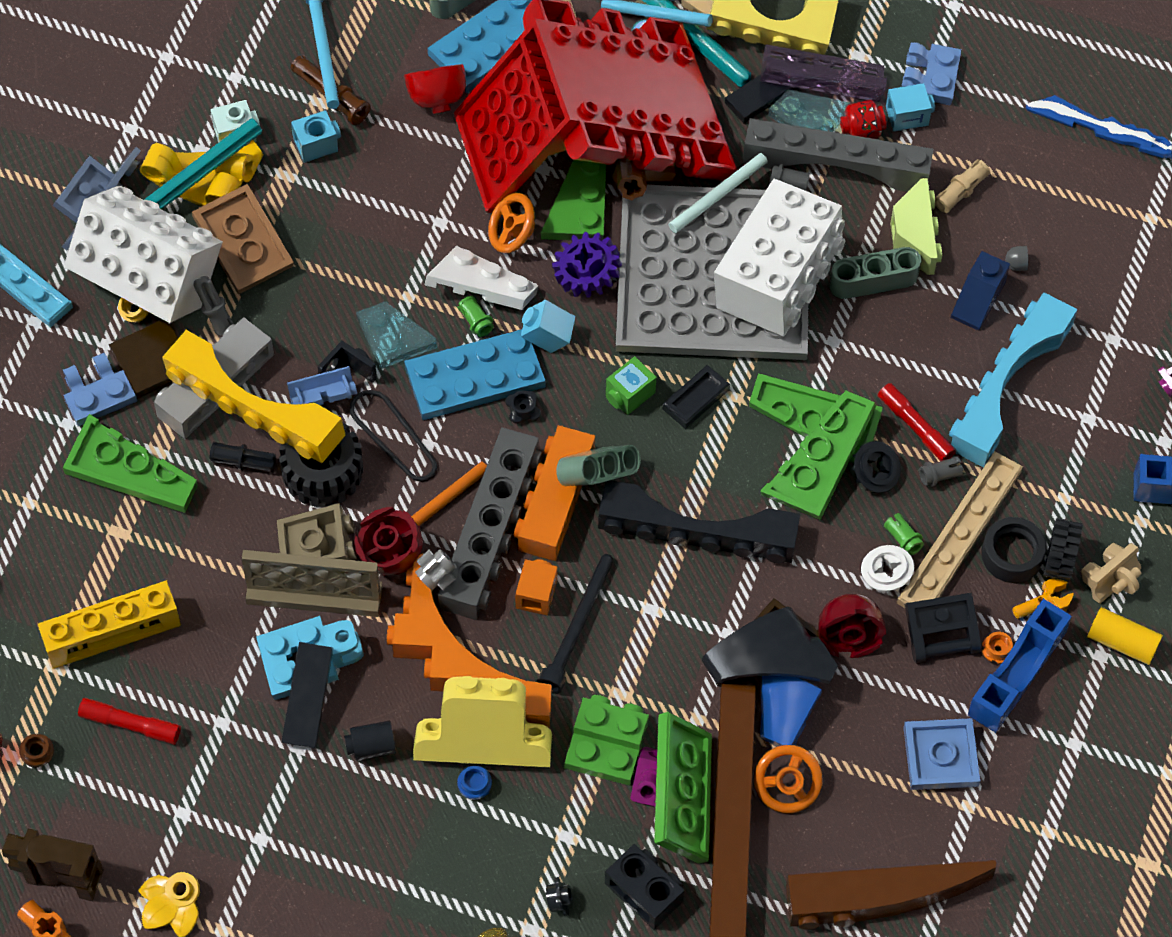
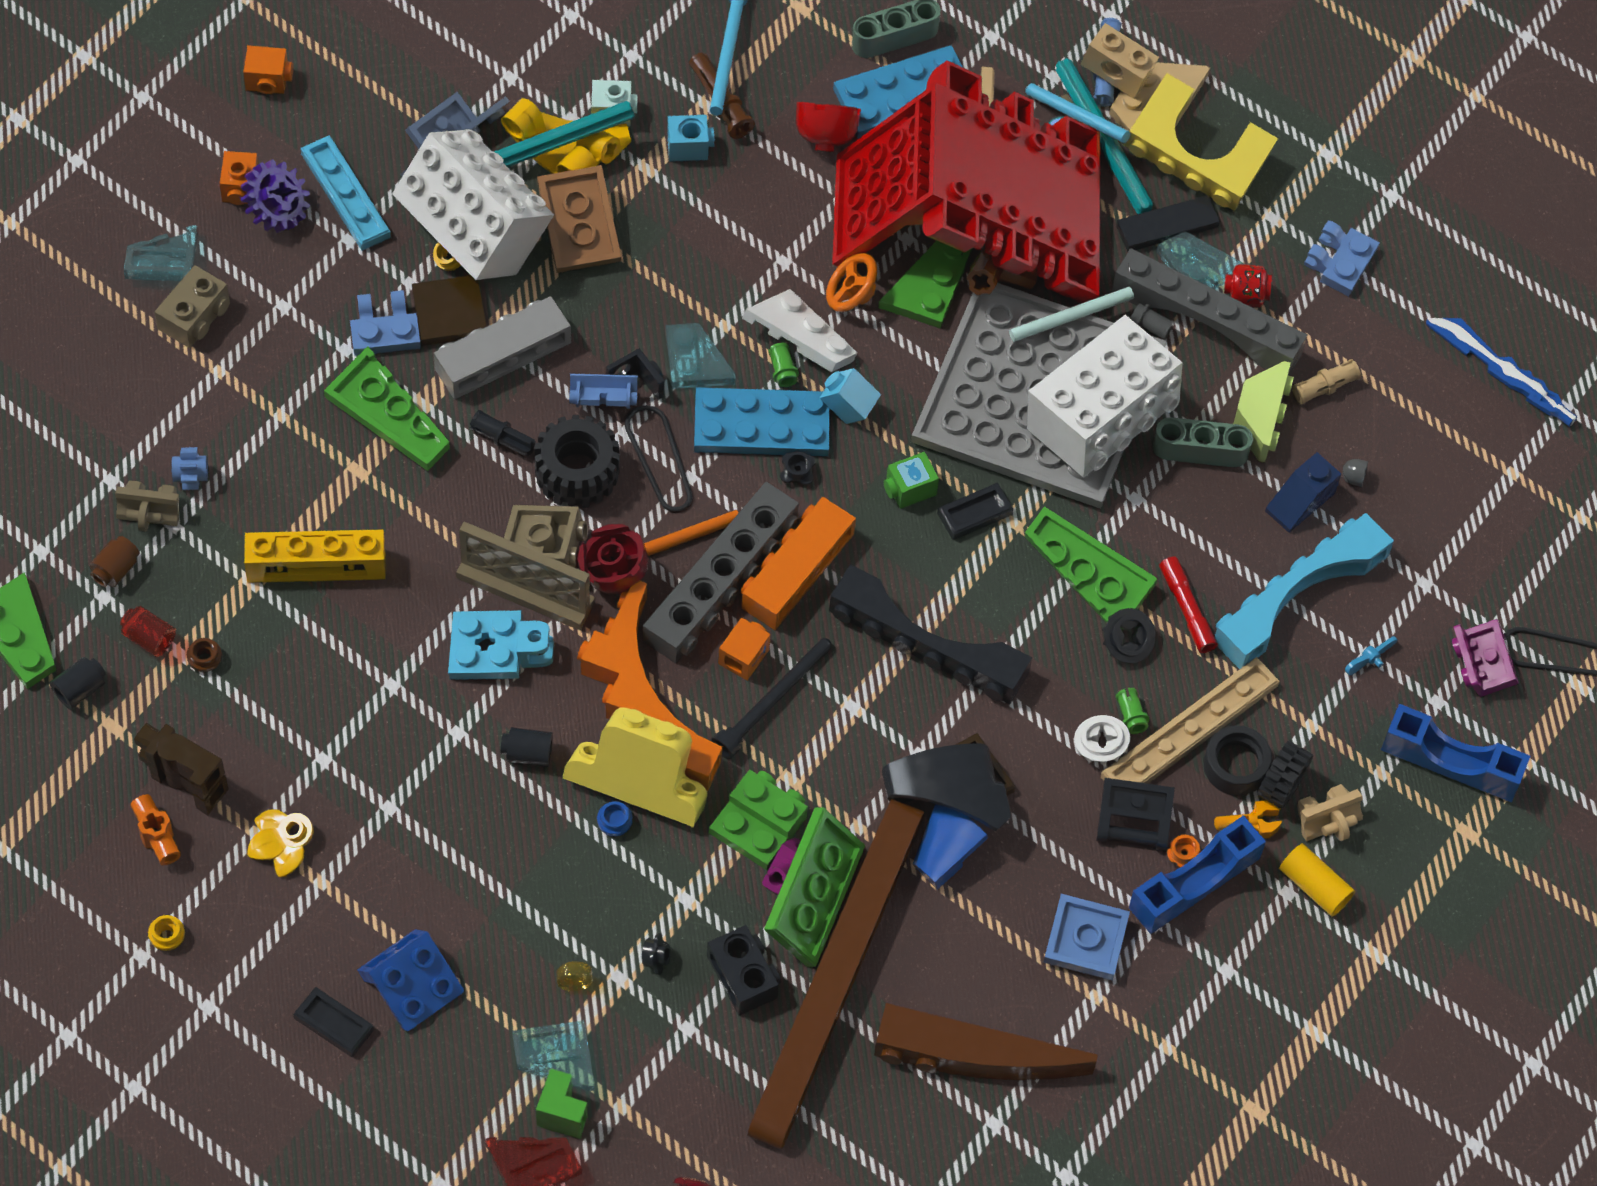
camera: 15 degrees right, 0 degrees up
(109, 715) = (285, 643): red piece -> none
(212, 305) = (525, 275): dark grey axle -> none
(303, 426) = (568, 420): yellow arch -> none
(307, 695) = (481, 683): black tile -> none
(436, 569) = (647, 599): light grey gear -> none
(587, 264) = (912, 346): dark purple gear -> none
(598, 465) = (847, 547): sand green beam -> none
(804, 800) = (932, 937): orange piece -> none
(819, 463) = (1066, 619): bright green wing -> none
(821, 77) = (1225, 229): clear purple fence -> none
(851, 625) = (1042, 782): dark red cylinder -> none
(909, 107) = (1303, 285): medium azure brick -> none
(940, 471) = (1193, 660): dark grey pin -> none
(1092, 418) = (1370, 655): none -> dark azure piece

